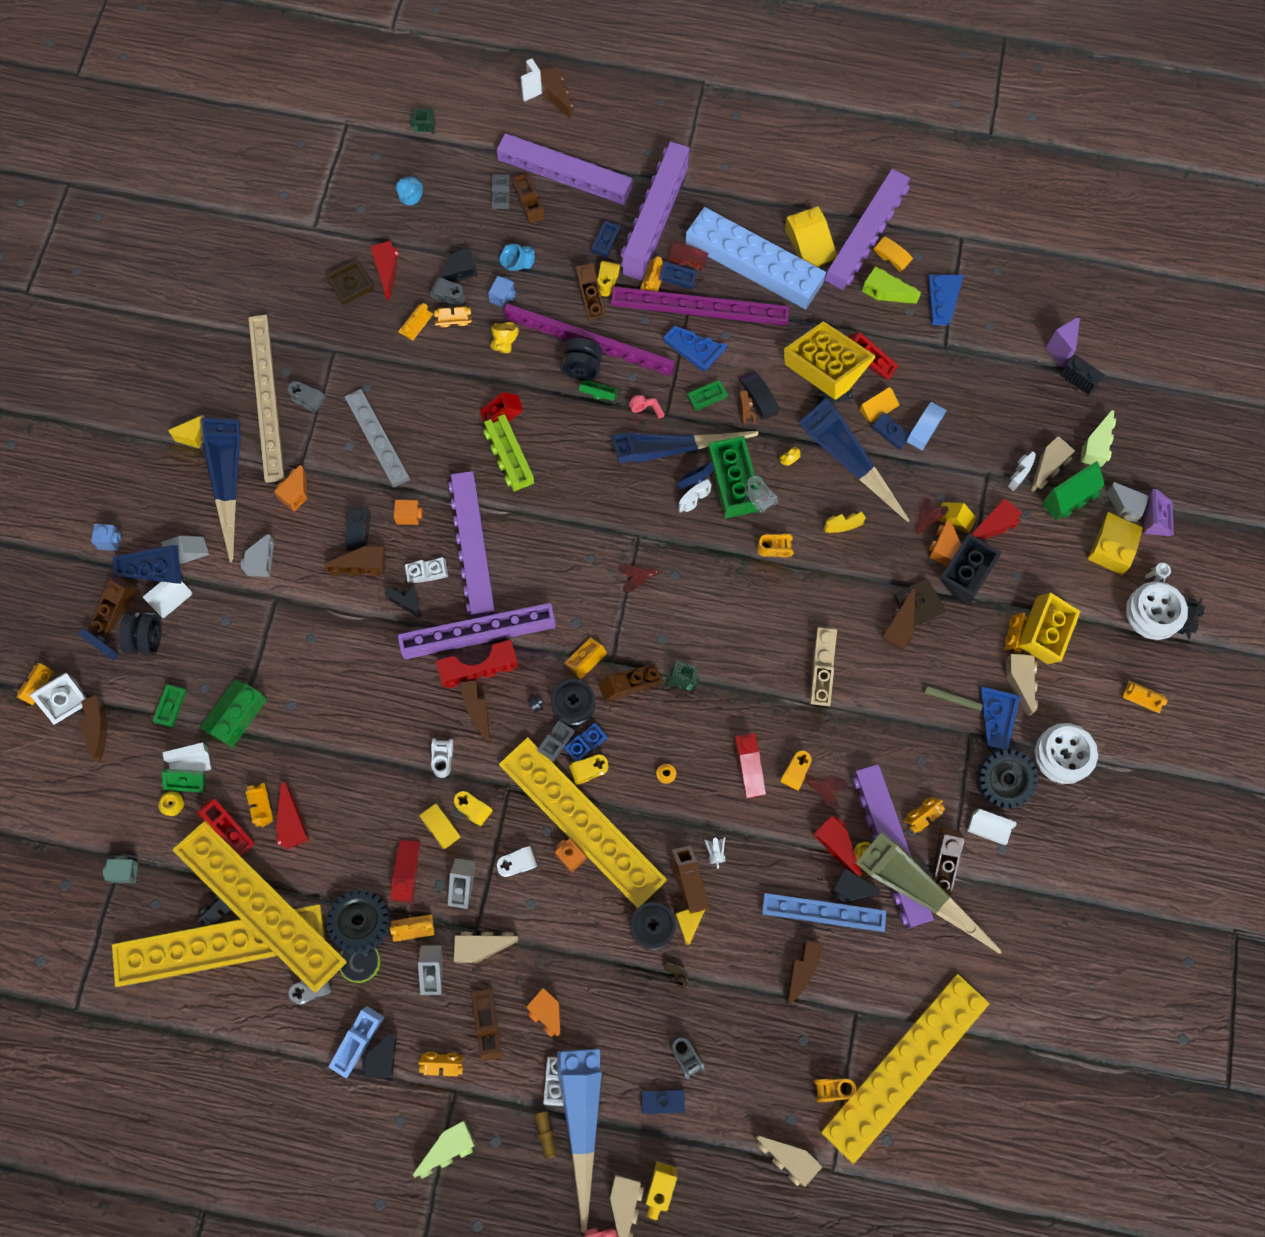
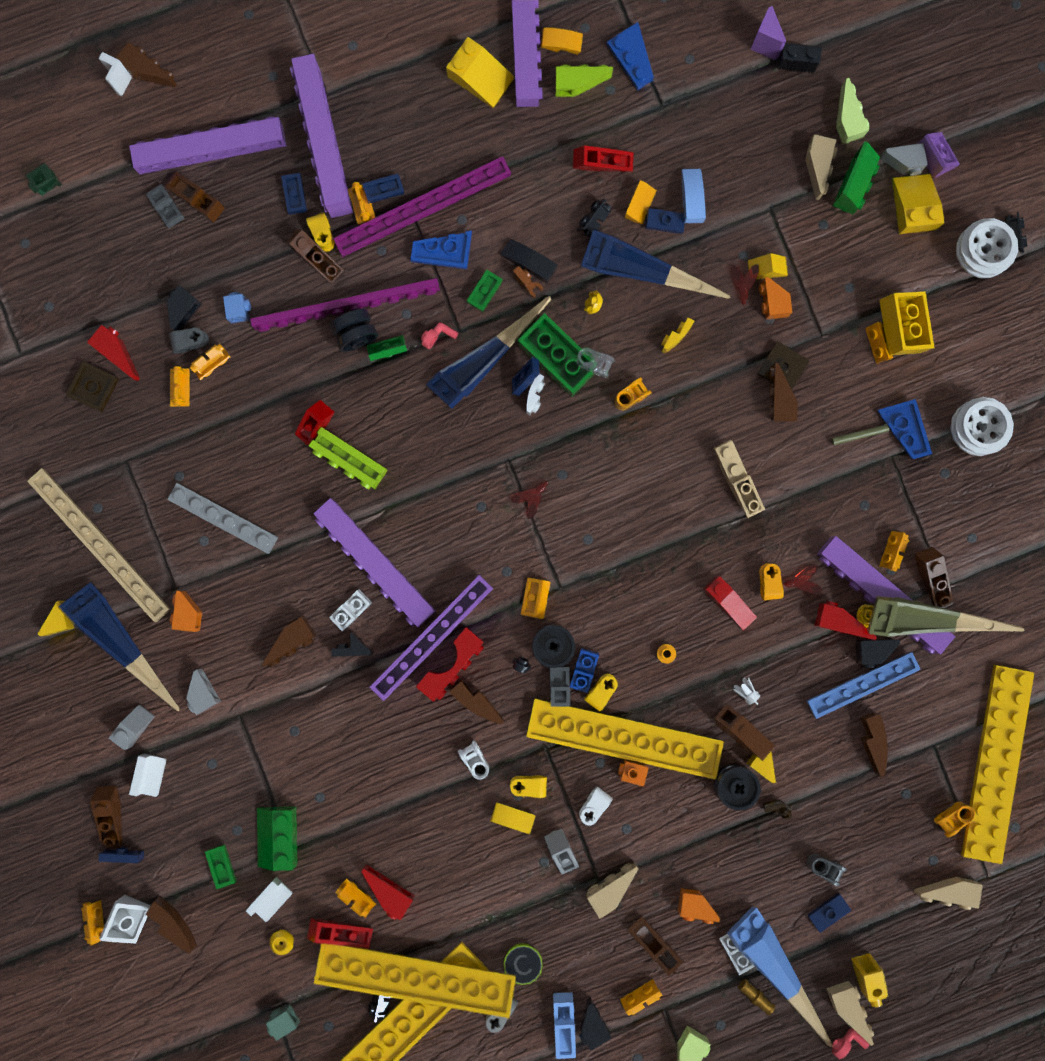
camera: 30 degrees left, 15 degrees up
(106, 537) = (56, 762): medium blue brick -> none
(140, 633) = (151, 826): black wheel -> none
(153, 564) = (114, 764): dark blue wing -> none
(183, 780) = (278, 919): green plate -> none
(306, 396) = (136, 521): dark grey piece -> none
(357, 527) = (266, 612): black slope -> none
(360, 937) = (518, 937): wheel -> none
(405, 872) = (511, 872): red slope -> none
(407, 512) = (299, 570): orange brick -> none
(409, 190) = (81, 259): dark azure hair -> none
(412, 928) = (546, 911): light orange hinge -> none
(430, 970) = (584, 934): light grey slope -> none
(503, 336) = (268, 350): yellow hair -> none
(517, 257) = (227, 265): dark azure hair -> none
(629, 682) = (587, 596): reddish brown slope -> none
(683, 676) = (631, 556): clear green brick -> none
(688, 255) = (379, 161): clear red slope -> none
(755, 258) = (441, 126): light blue brick -> none
(828, 359) = (572, 189): yellow slope -> none
(969, 568) = (810, 310): black slope -> none
(991, 826) = (953, 527): white panel -> none
(999, 521) = (807, 245): red slope -> none
(1021, 677) = (907, 381): tan slope -> none
(1021, 782) = (958, 481): wheel -> none
(1023, 468) = (800, 184): white slope -> none
(1144, 696) = (1015, 331): light orange hinge -> none
(1161, 571) = (970, 208): white piece -> none

